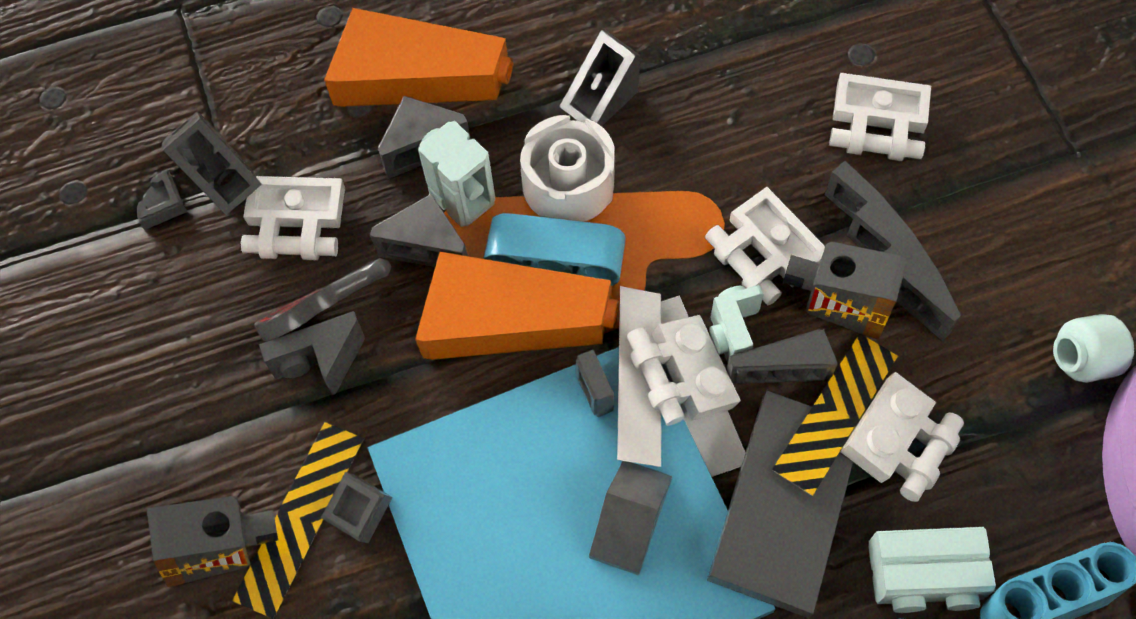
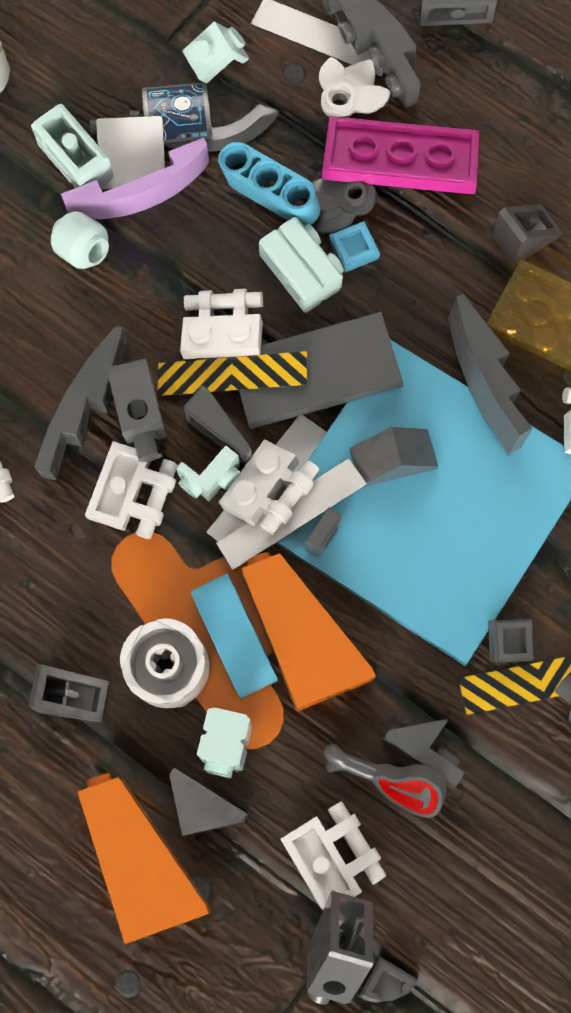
camera: 125 degrees left, 10 degrees up
(417, 234) = (285, 739): flat silver slope -> none

